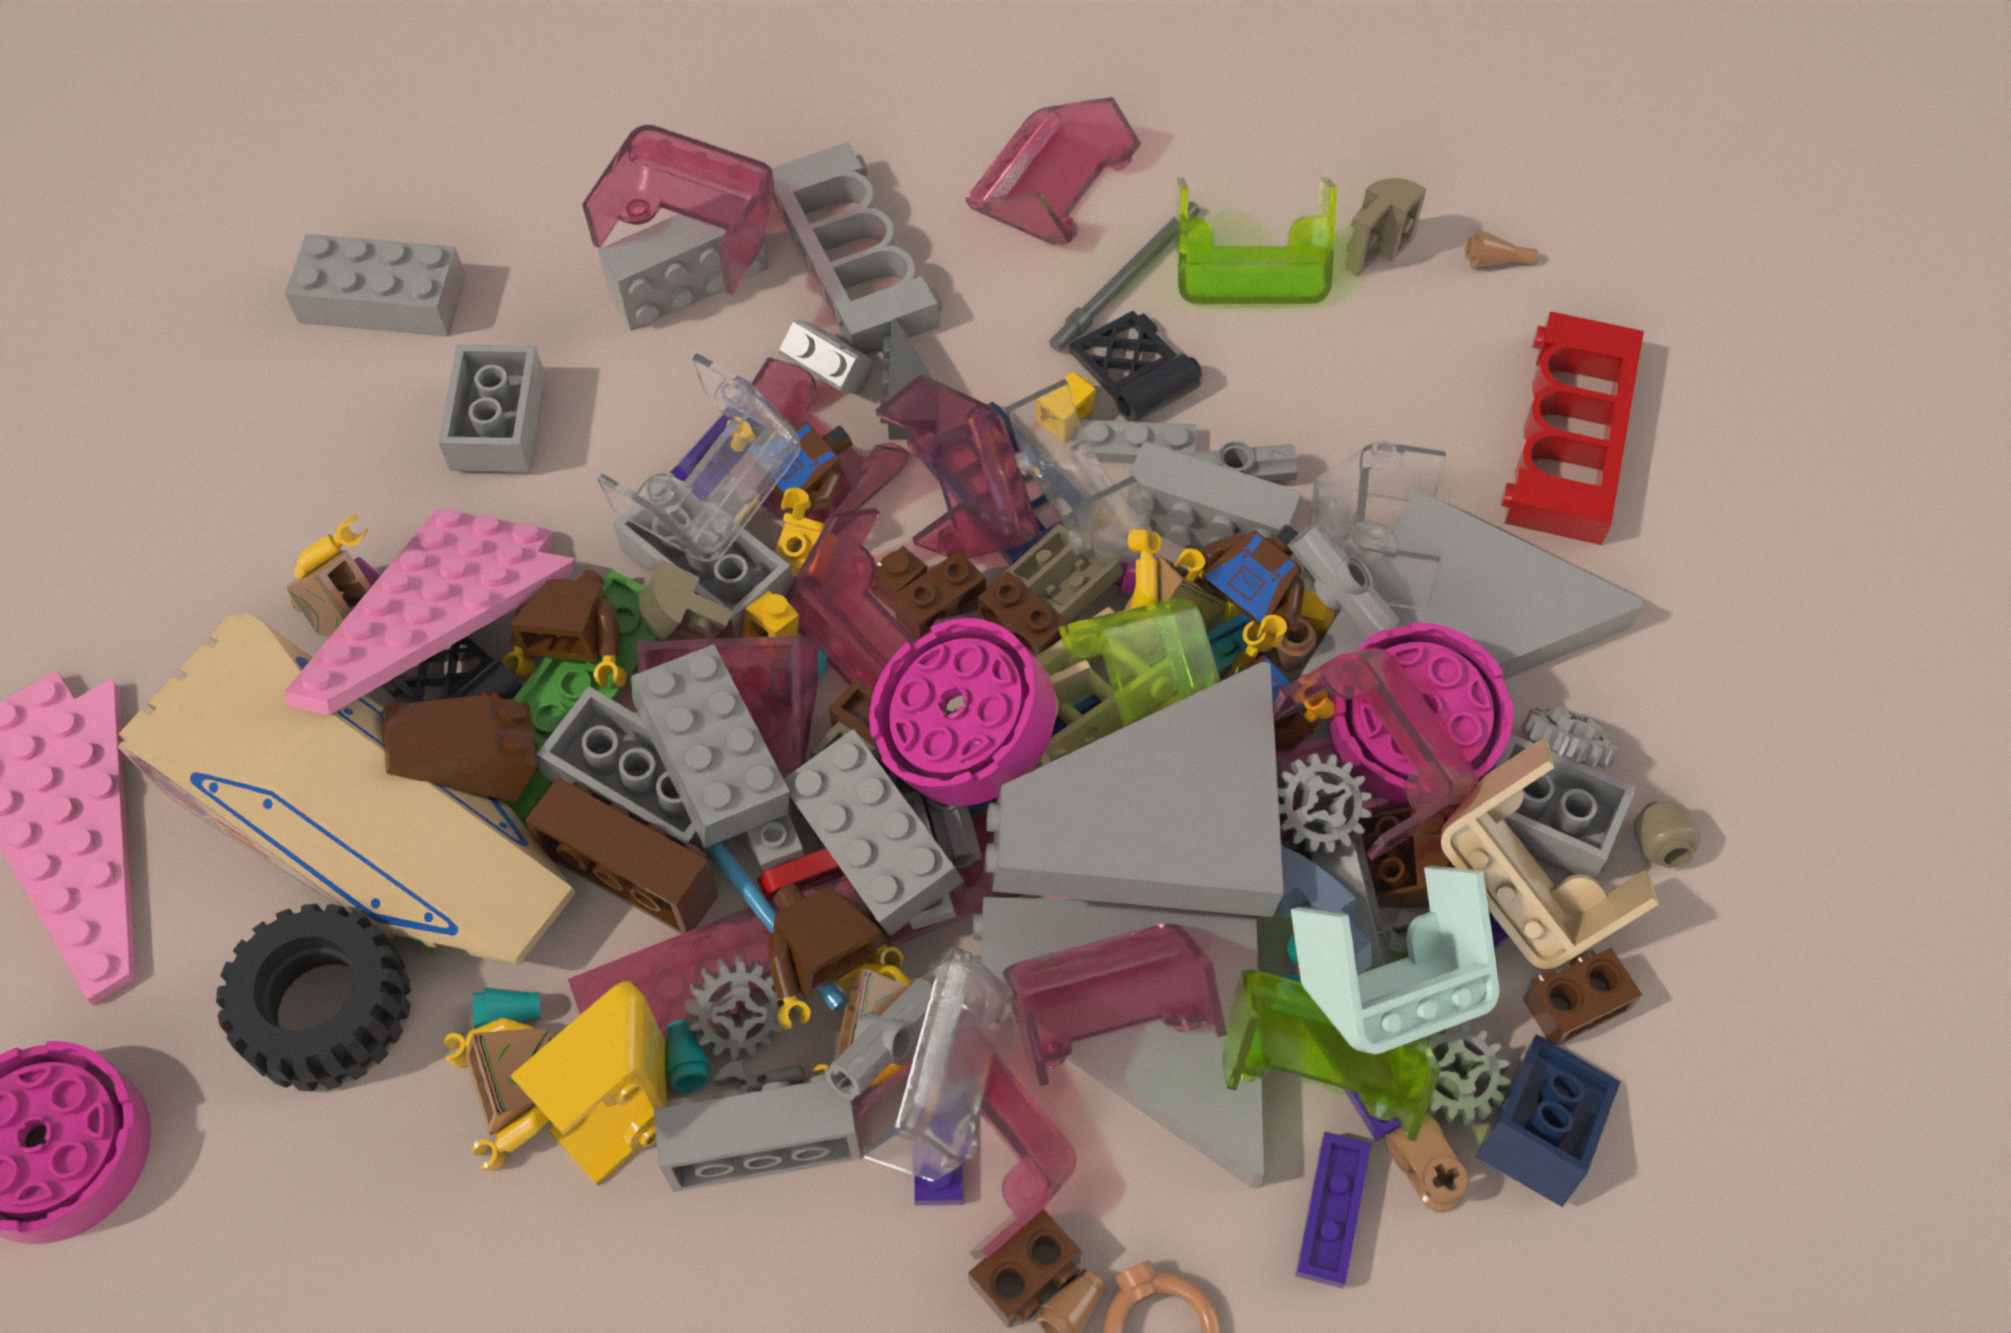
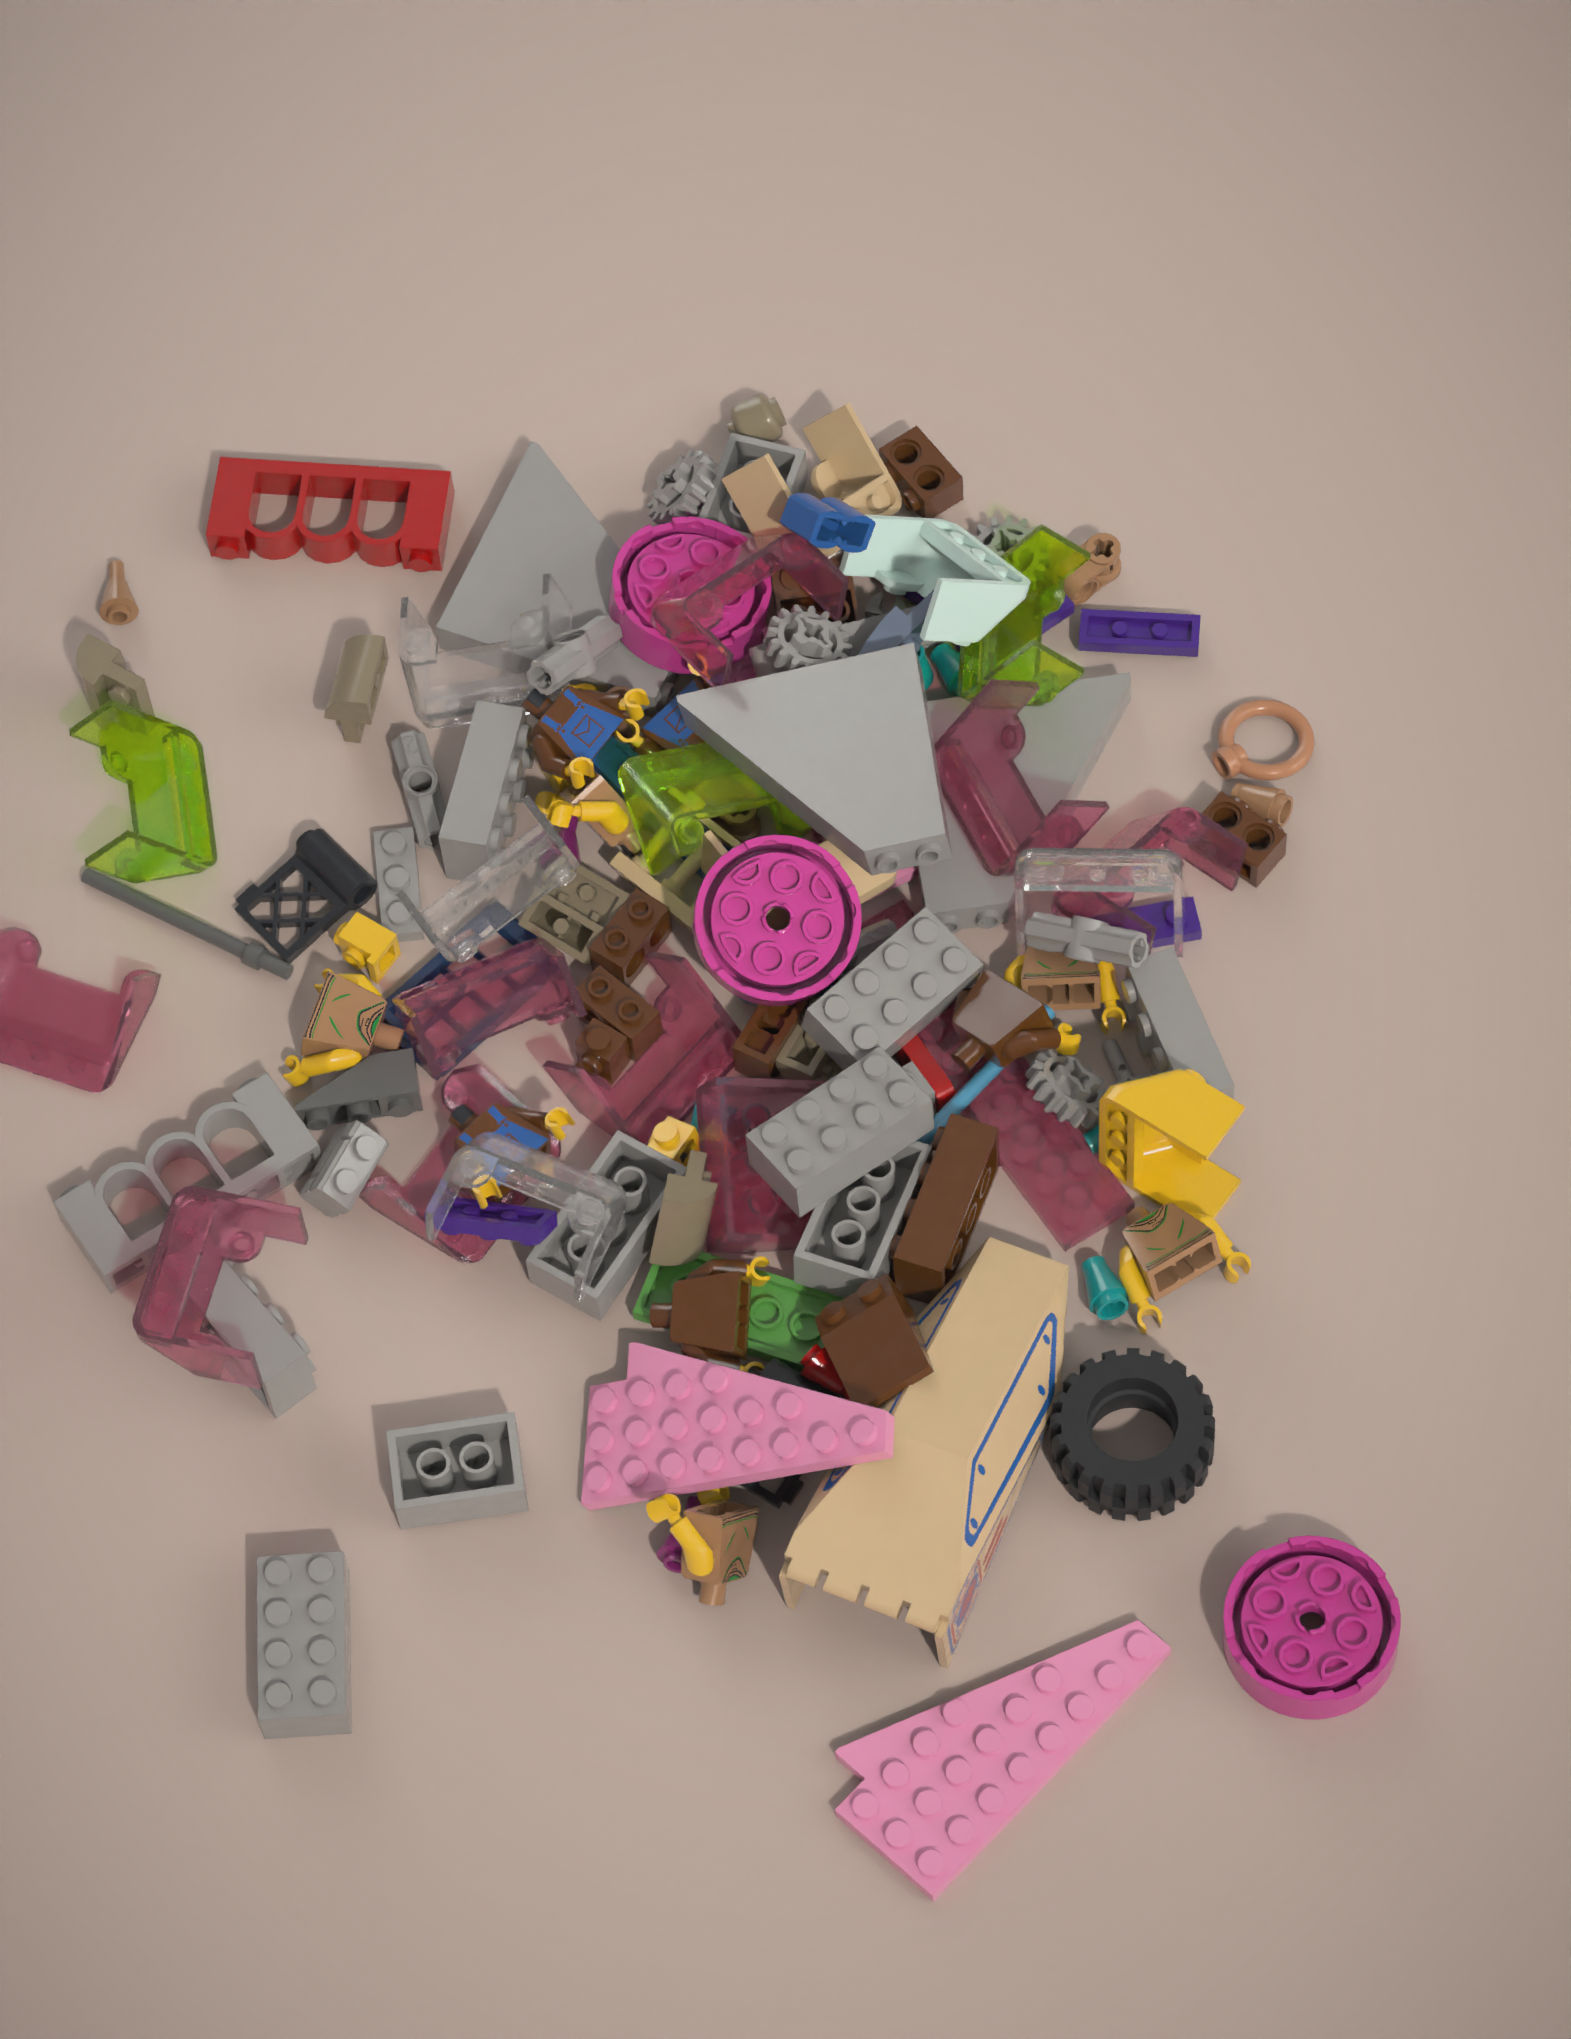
camera: 95 degrees left, 0 degrees up
(793, 533) = (571, 1148): yellow brick -> none
(980, 363) = (342, 1028): none -> medium nougat torso
(1350, 414) = (357, 684): none -> dark tan brick
(1460, 826) = (827, 522): none -> blue brick
(1549, 1121) = (1035, 484): dark blue slope -> none

